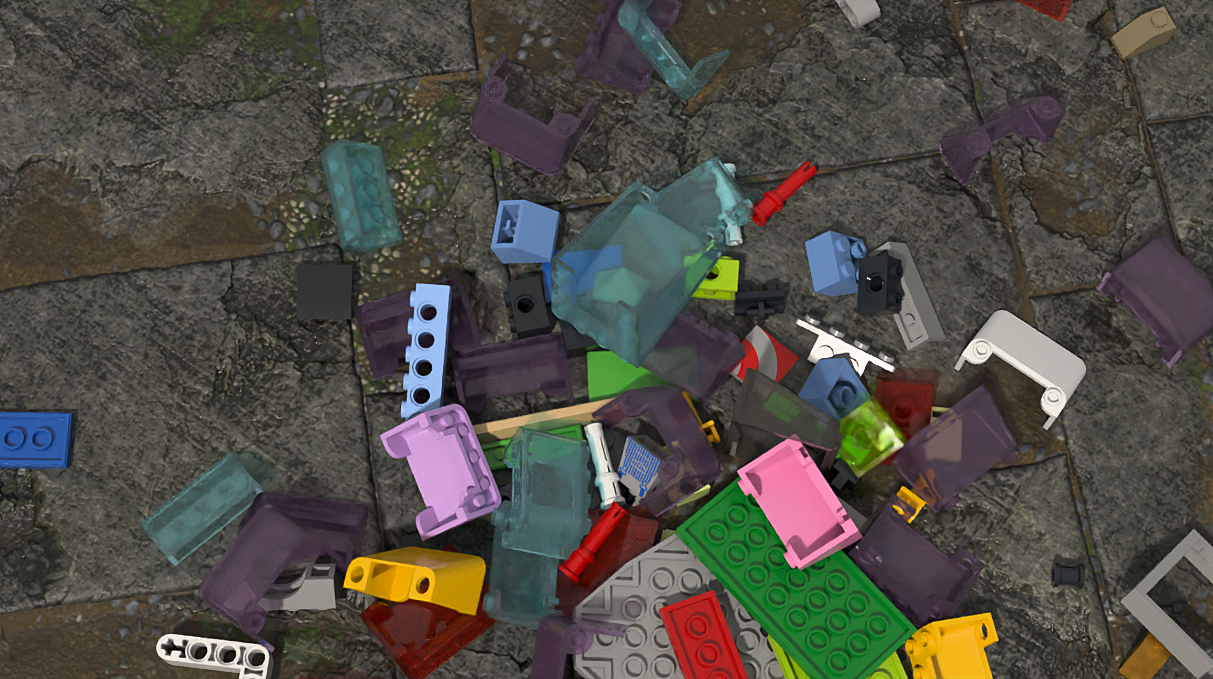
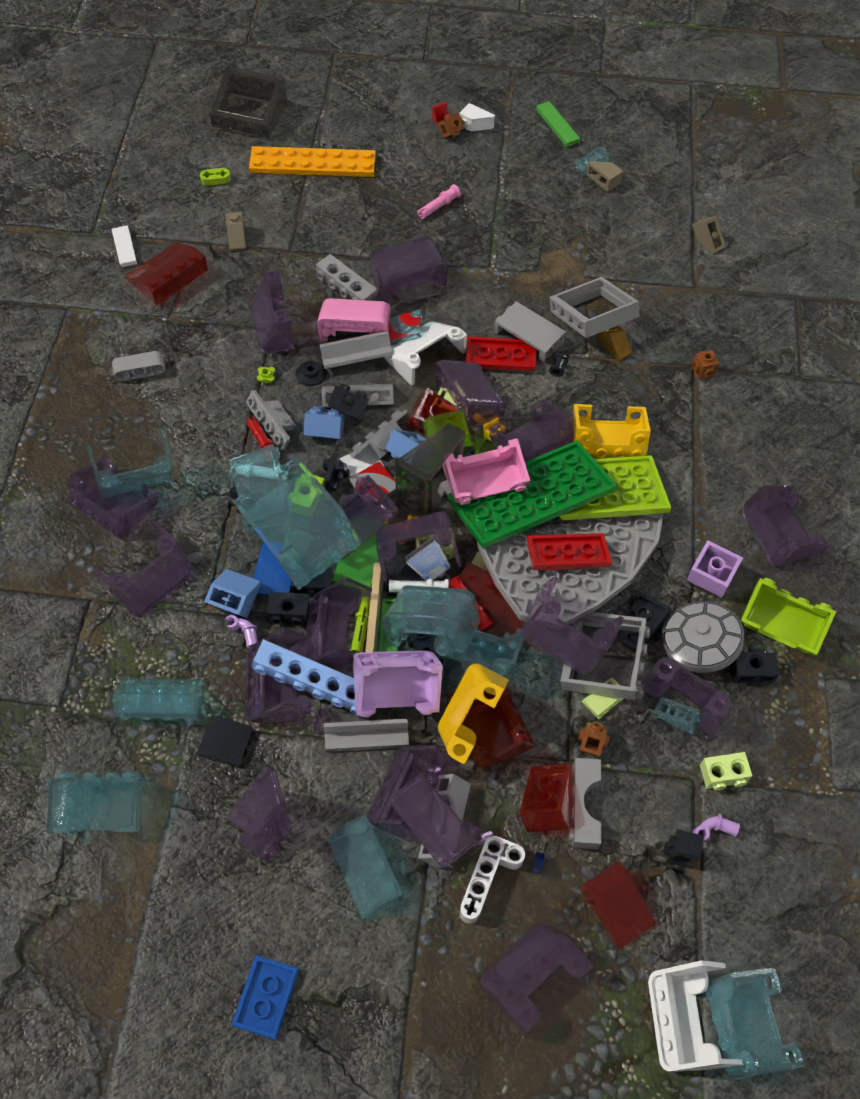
camera: 75 degrees left, 10 degrees down
(212, 172) = (94, 802): none -> clear light blue windscreen
(223, 360) = (262, 815): none -> clear purple windscreen
(373, 462) = (366, 735): none -> light grey panel
(481, 272) = (247, 628): none -> lavender piece
(496, 412) = (357, 646): none -> lime pin
(791, 335) = (360, 461): none -> white sticker
(824, 196) = (272, 418): none -> light grey bracket
(894, 167) = (265, 374): none -> lime plate
(921, 230) = (311, 378): none -> black piece
(980, 270) = (356, 349): none -> light grey panel
(1040, 250) = (352, 317): none -> bright pink windscreen
(1050, 326) = (405, 327): none -> clear light blue tile
(1058, 483) = (501, 353): none -> red plate
(1118, 515) = (531, 329): none -> light grey panel
(1128, 186) = (345, 280): none -> light grey brick

